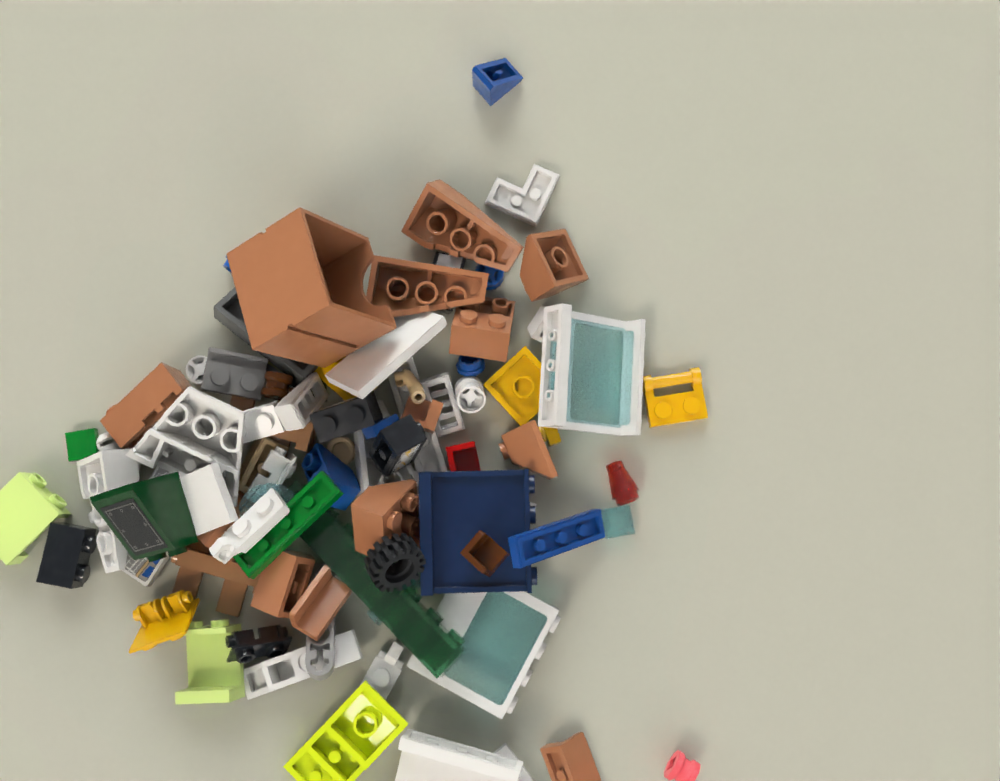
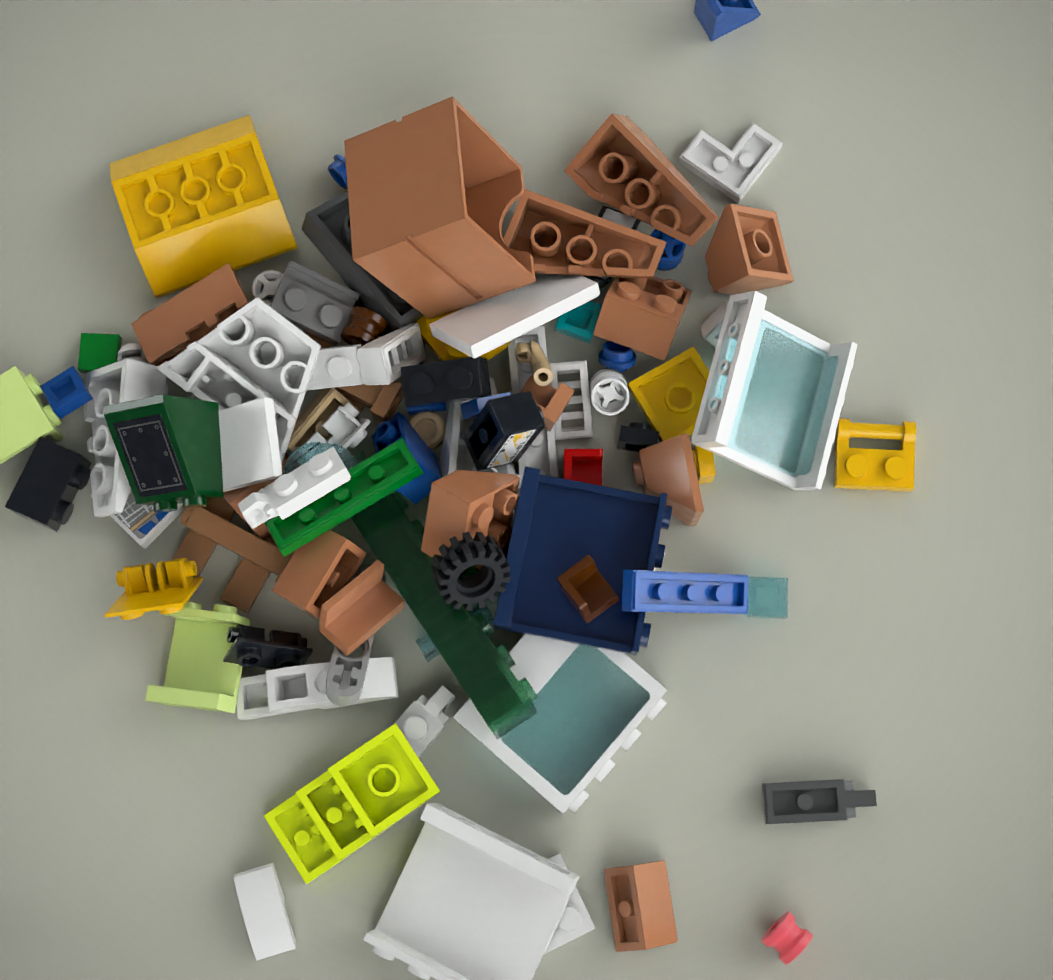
camera: 15 degrees right, 5 degrees down
(64, 481) = (66, 392): none -> blue plate
(132, 316) = (201, 206): none -> yellow slope
(438, 345) = (580, 321): none -> teal plate
(498, 423) = (637, 437): none -> black plate
(621, 484) = (783, 551): clear red cone -> none
(681, 665) = (813, 801): none -> dark grey hinge

